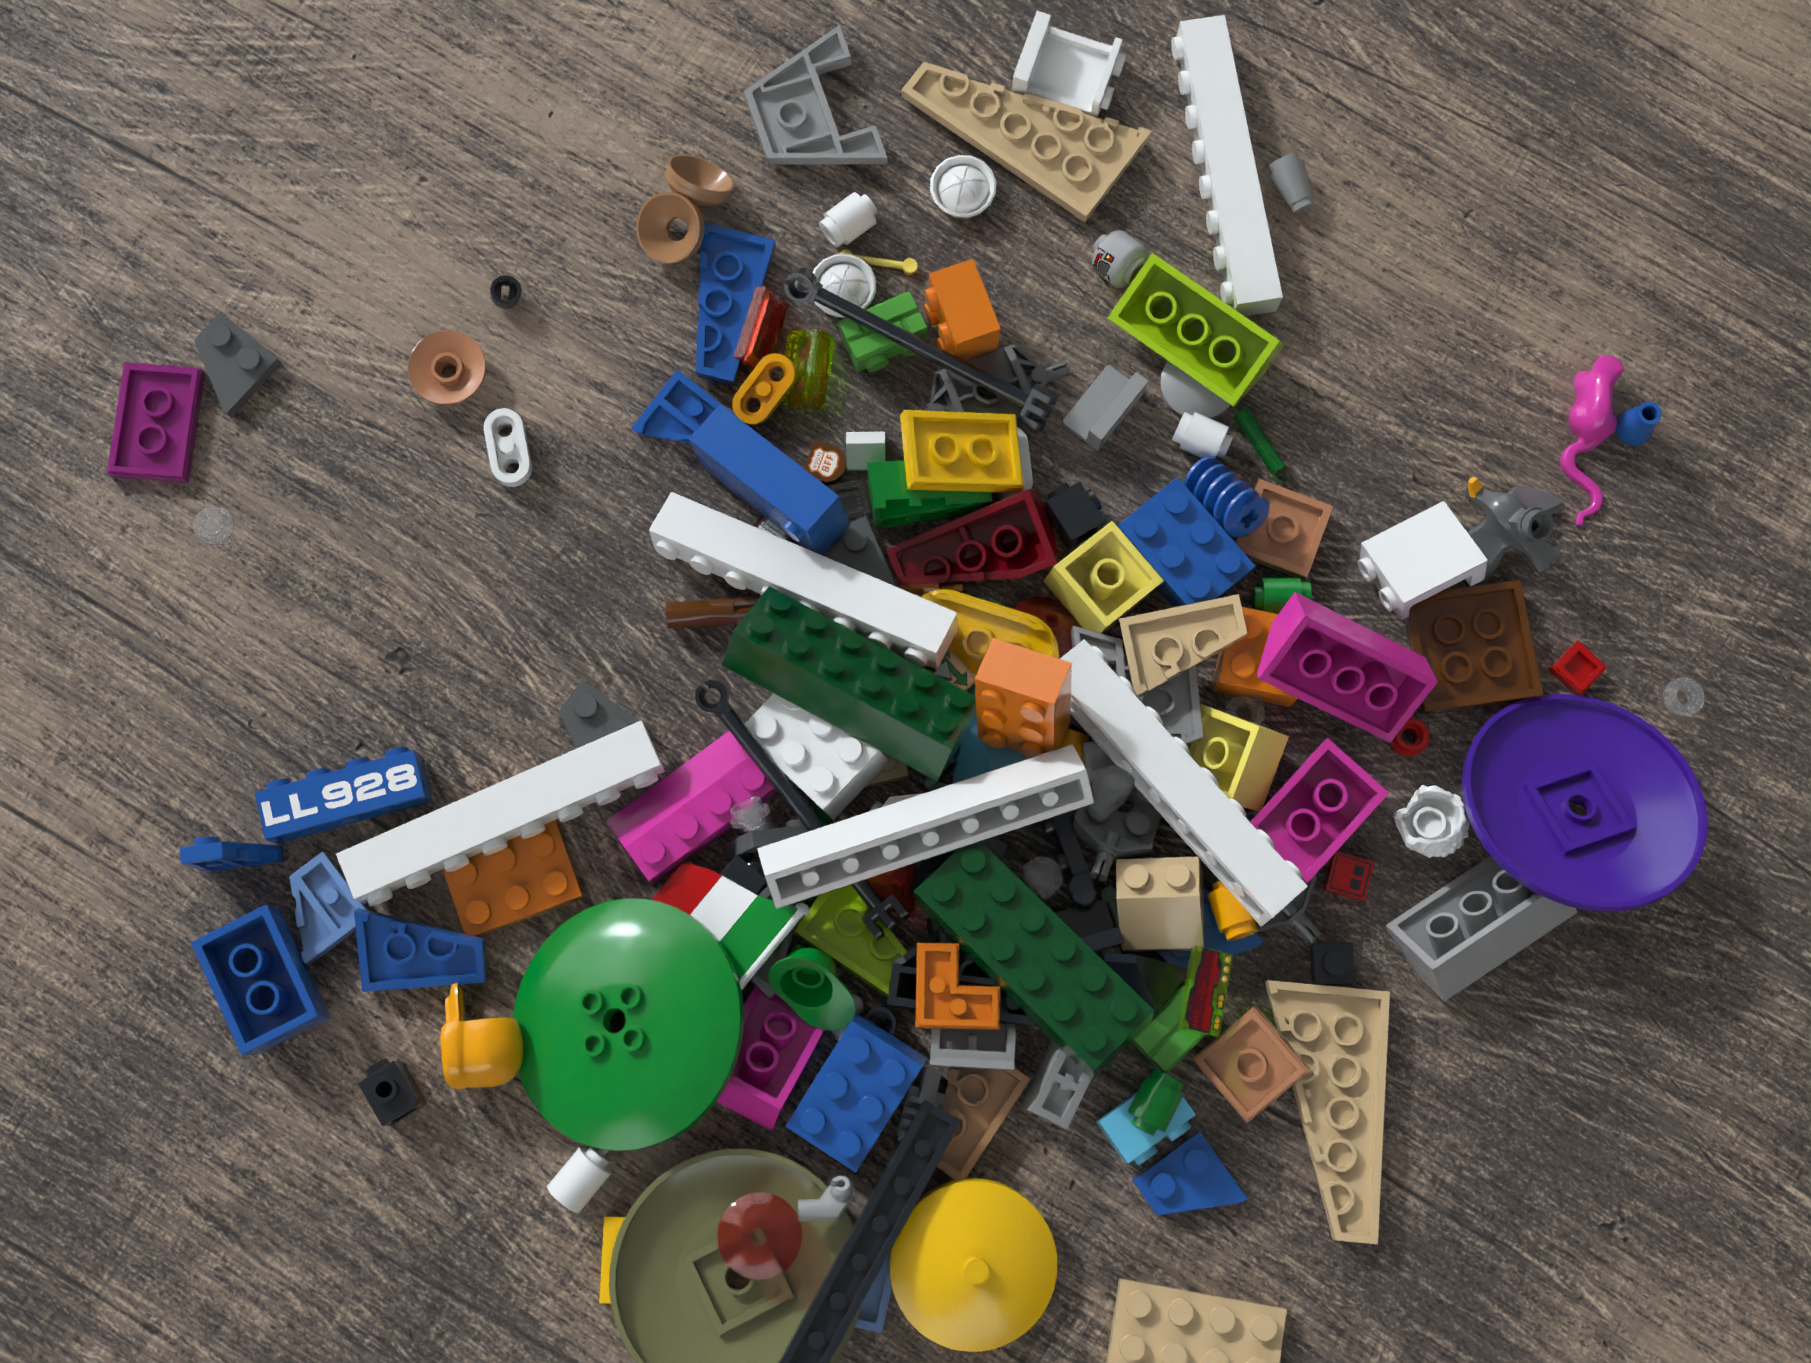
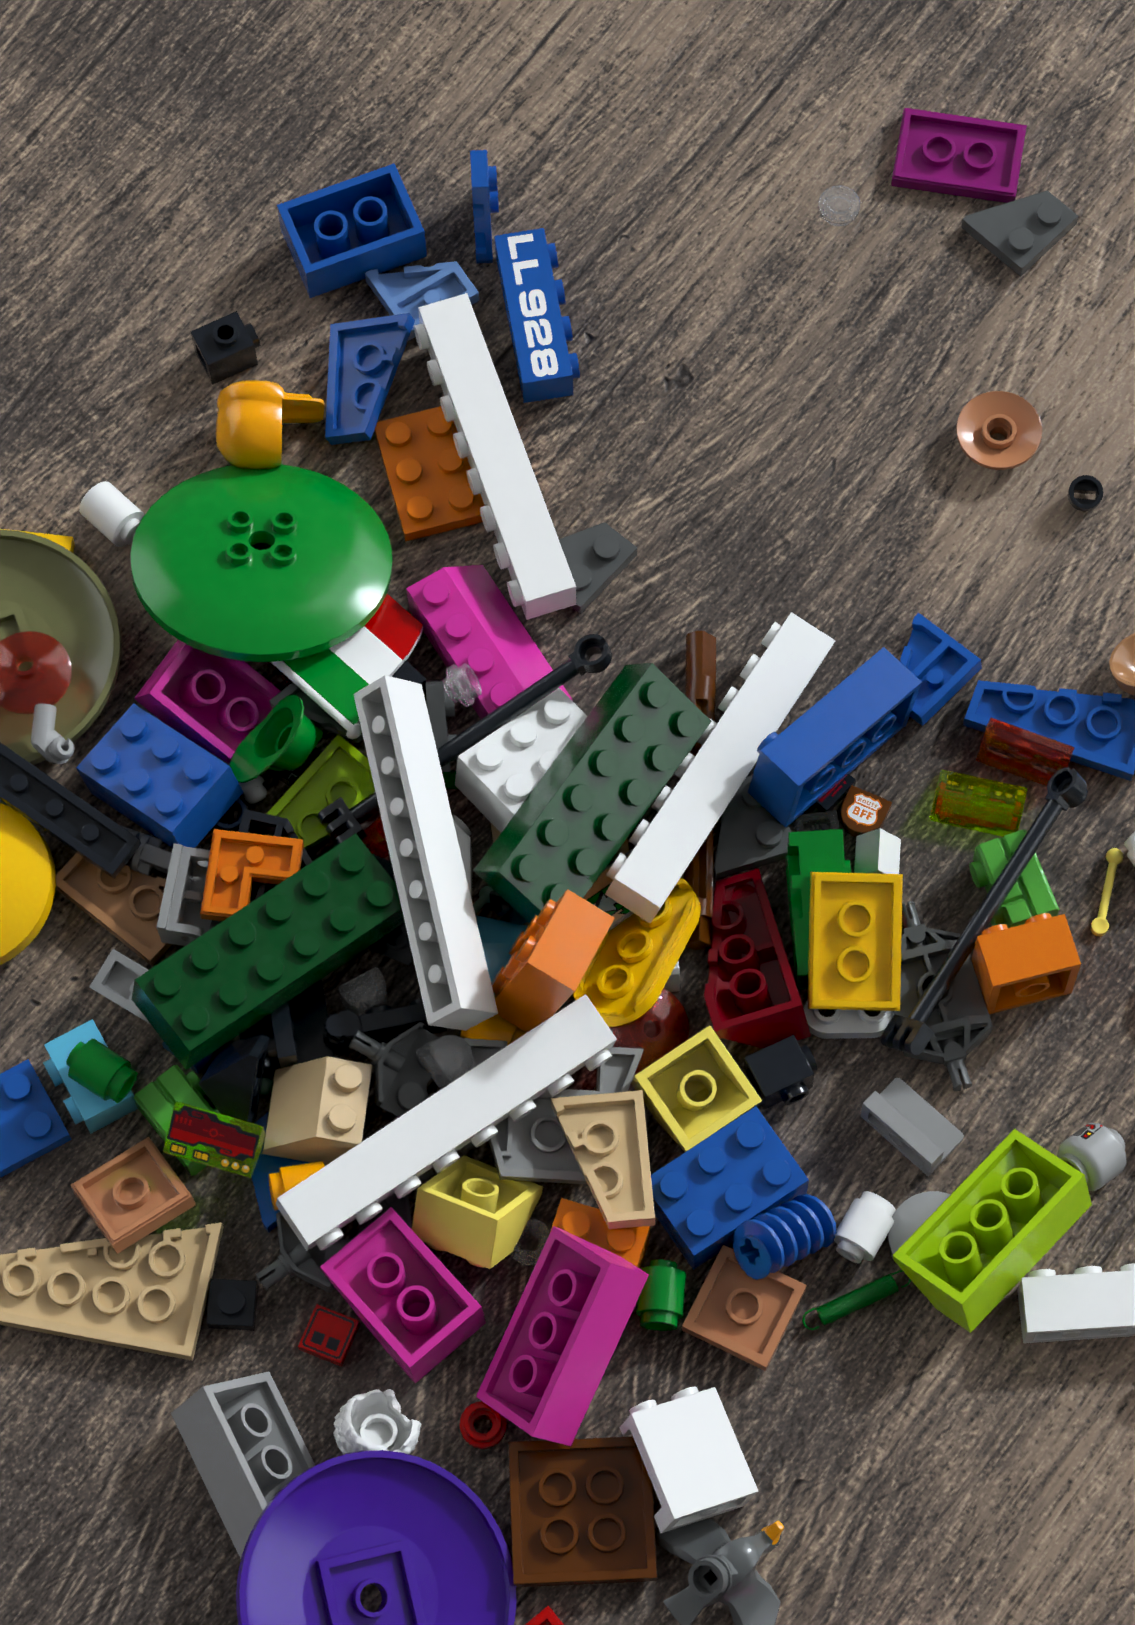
camera: 100 degrees right, 10 degrees down
(509, 449) = (903, 485): white plate -> none
(763, 387) = (956, 752): light orange plate -> none
(847, 278) = (1077, 846): white hat -> none

